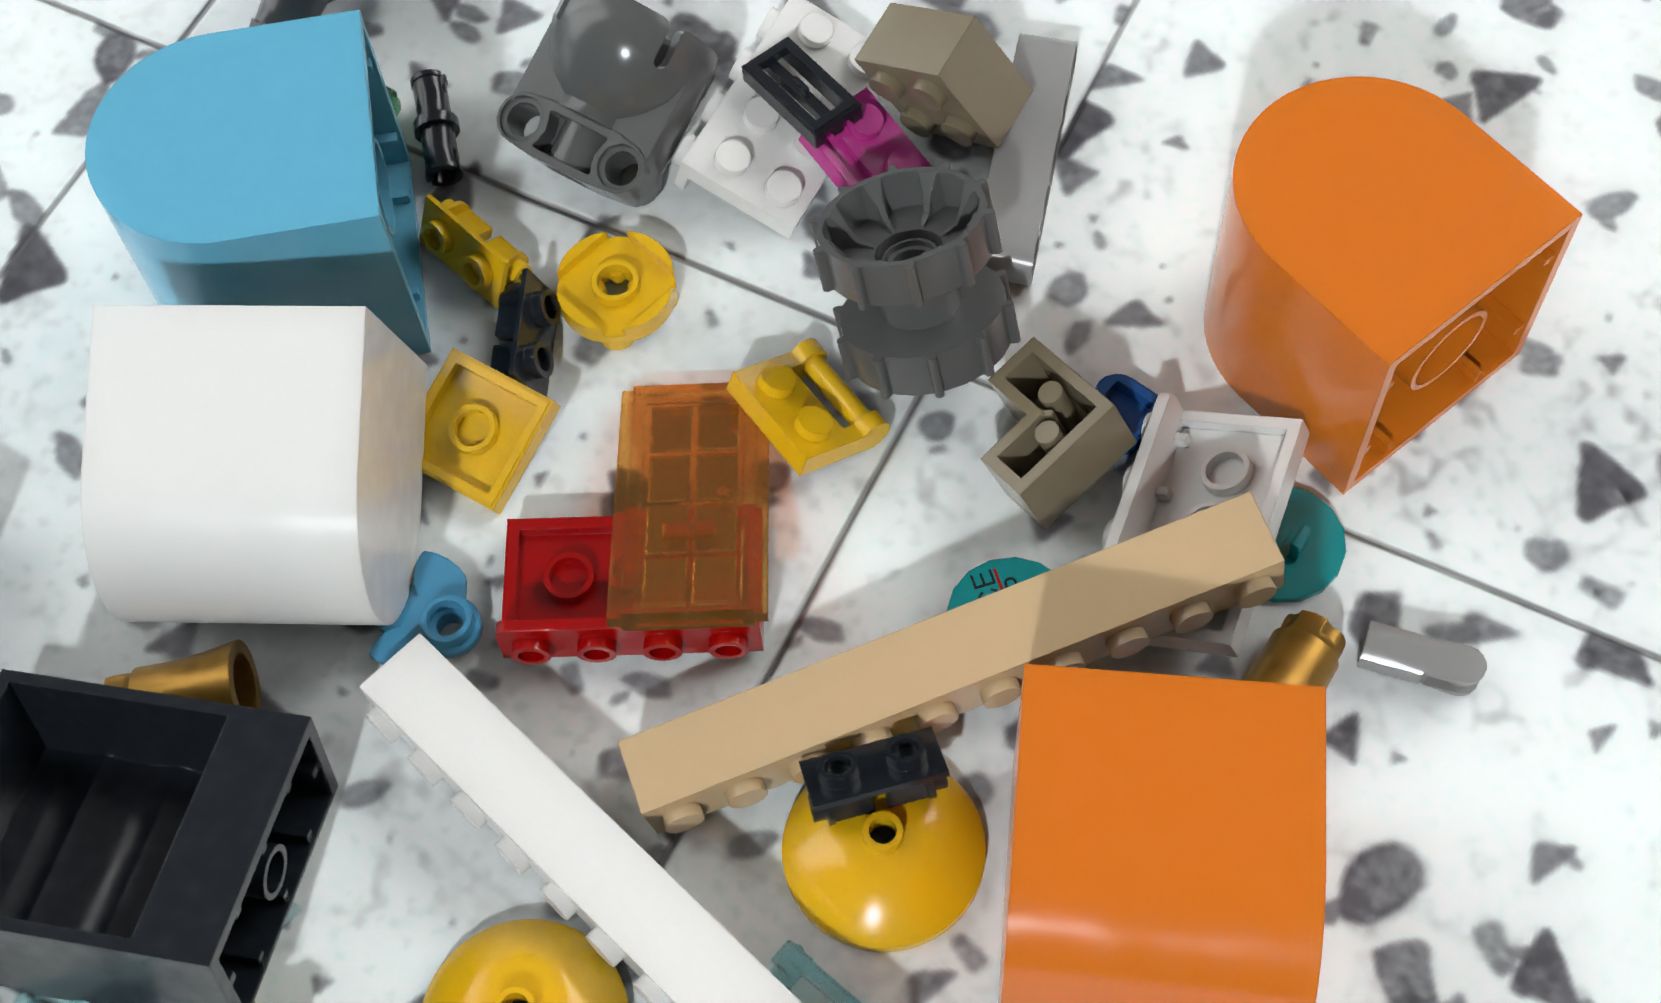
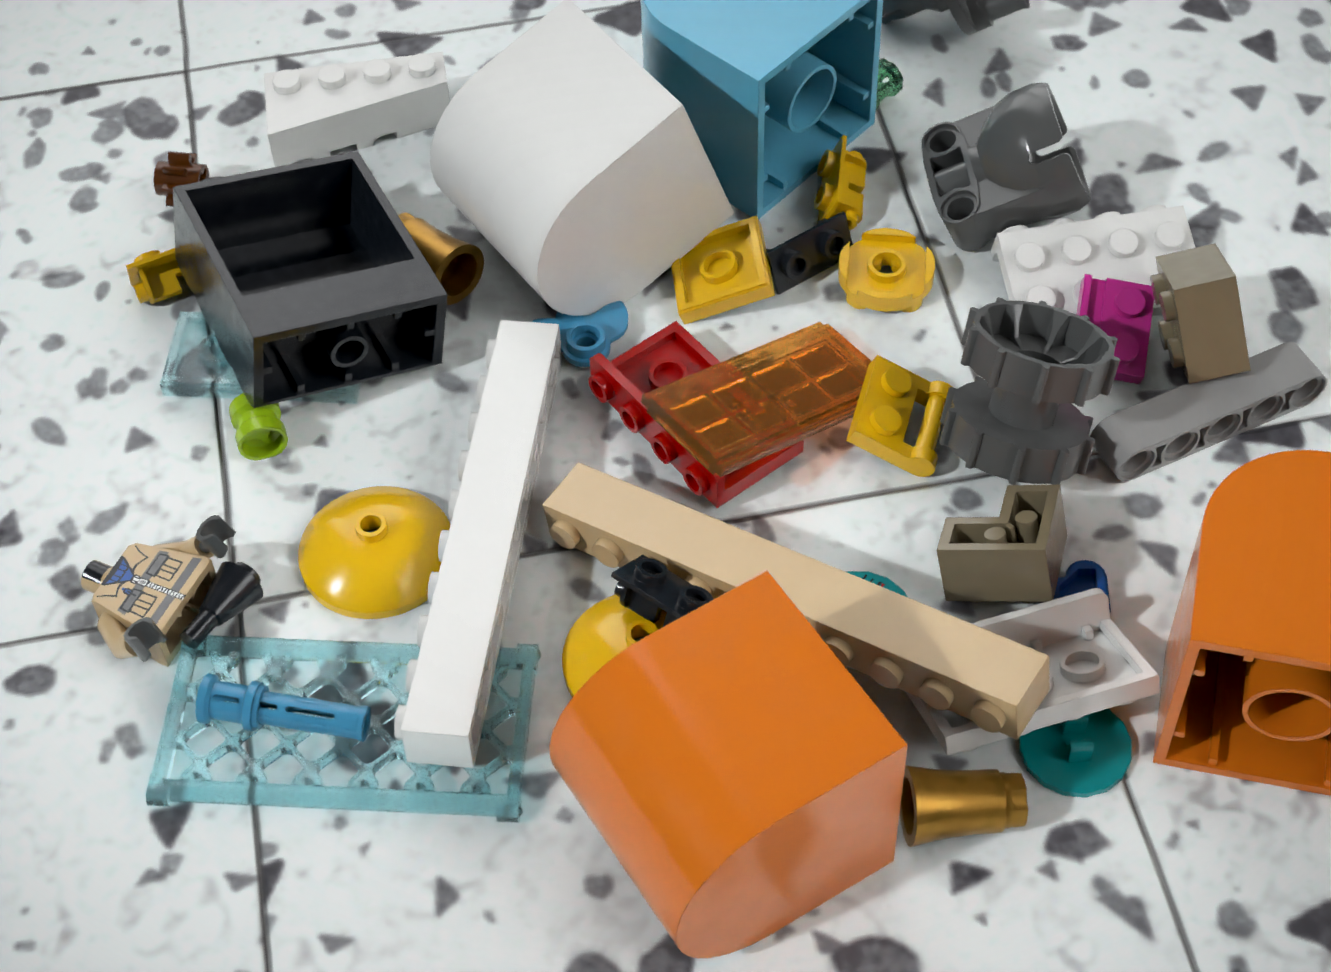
camera: 50 degrees right, 10 degrees down
(436, 127) = (902, 115): black pin -> none
(827, 121) = (1104, 276): black tile -> none
(1419, 658) = (1064, 880): light grey bar -> none

